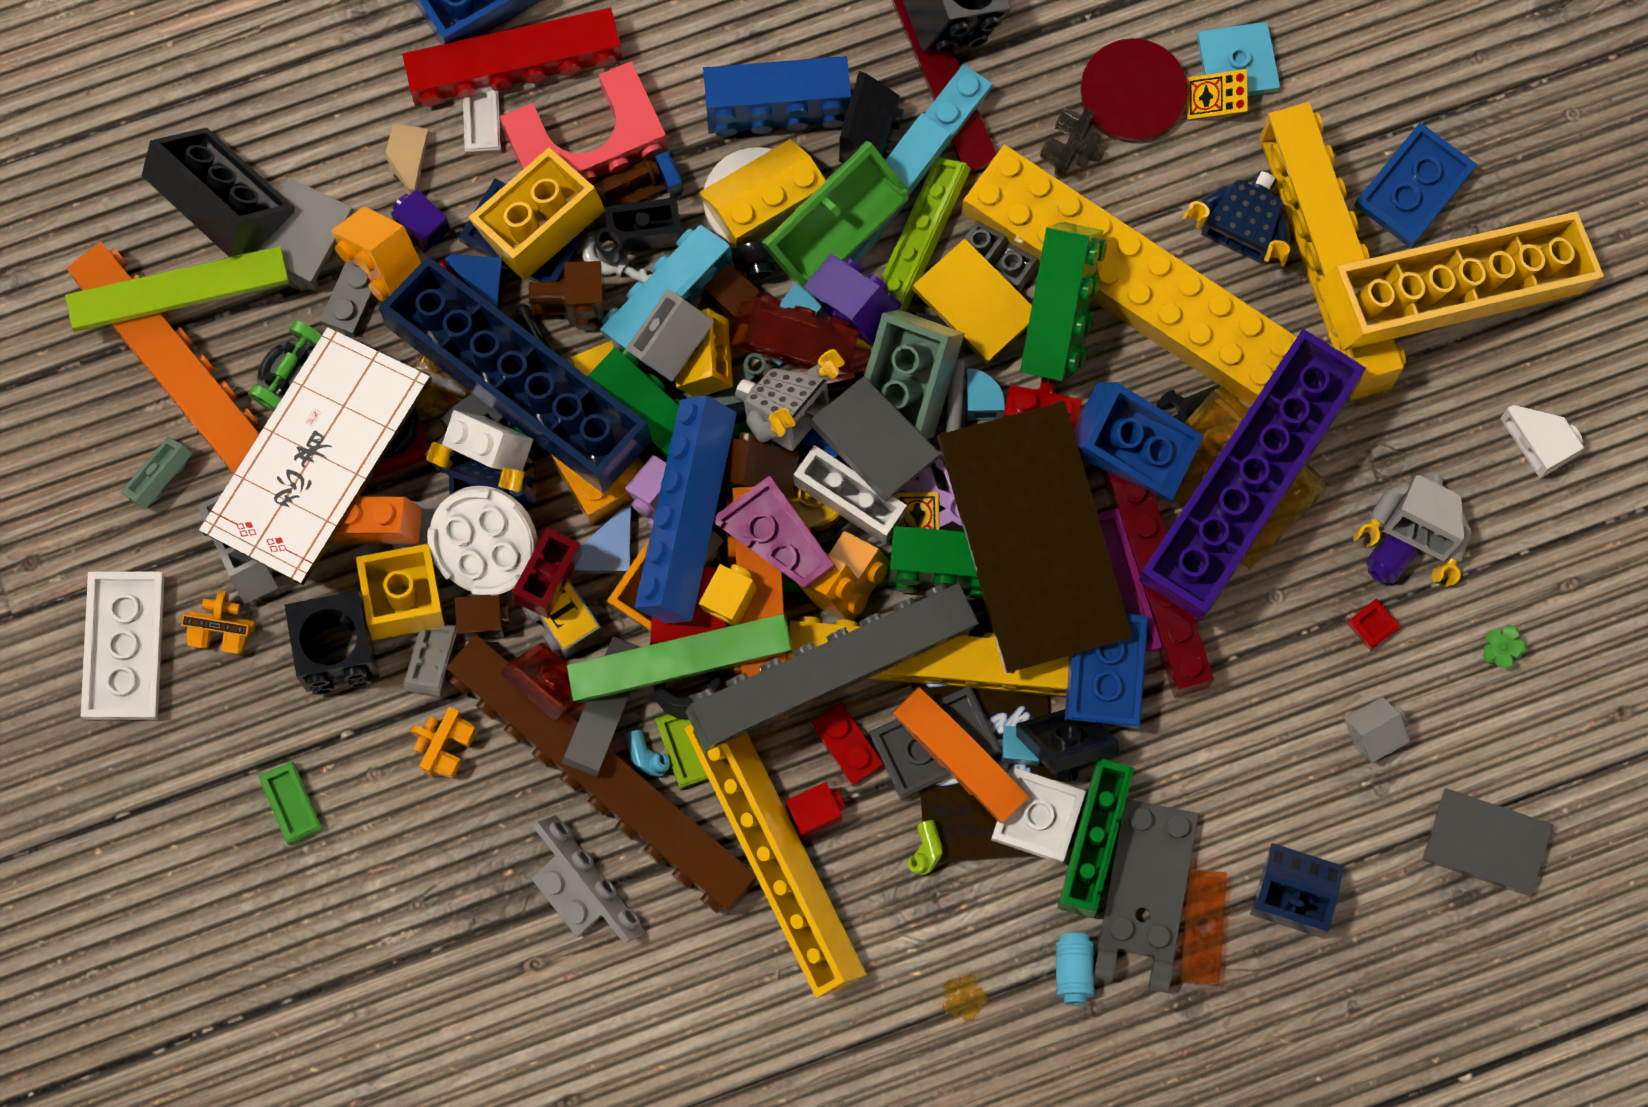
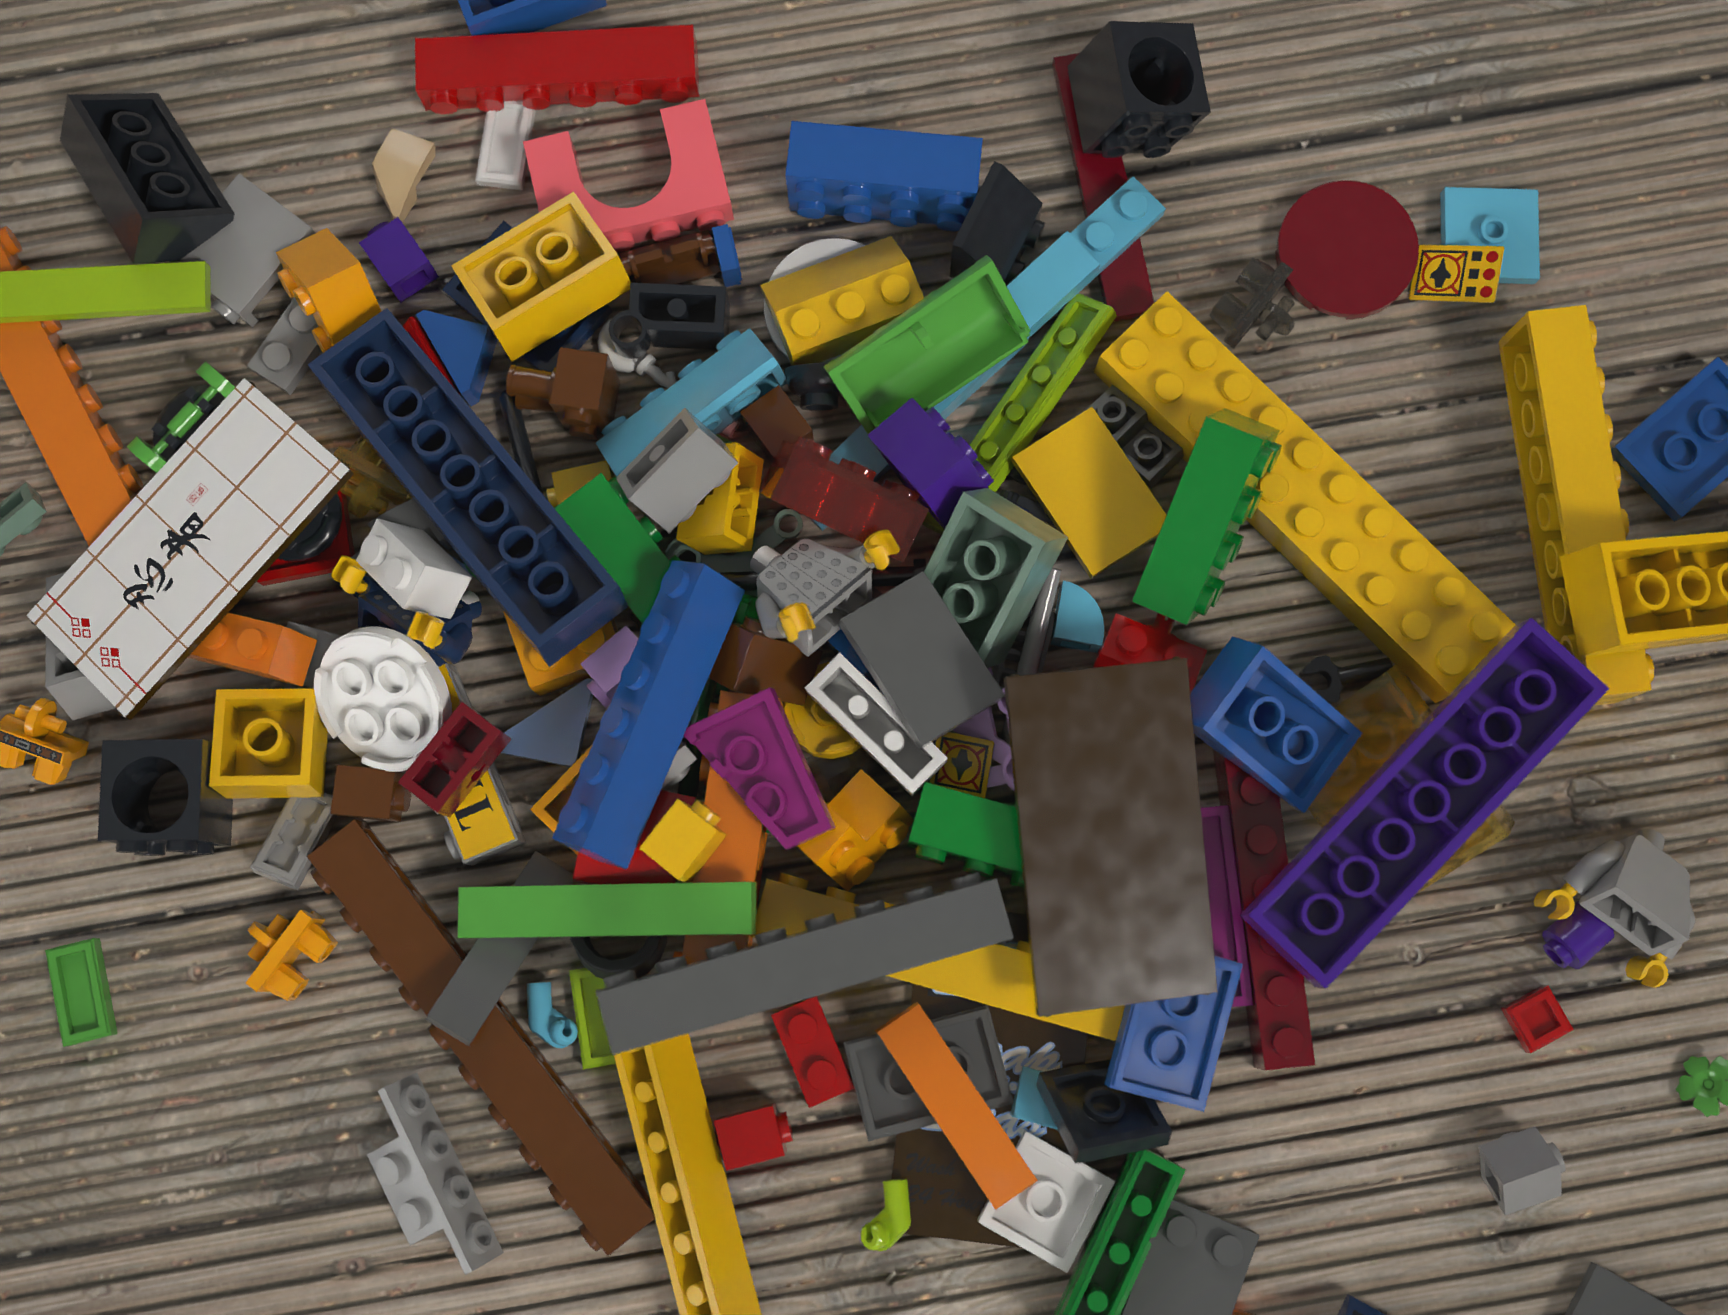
camera: 15 degrees right, 5 degrees up
(543, 680) = (425, 897): clear red tile -> none
(1245, 219) = (1466, 446): dark blue torso -> none

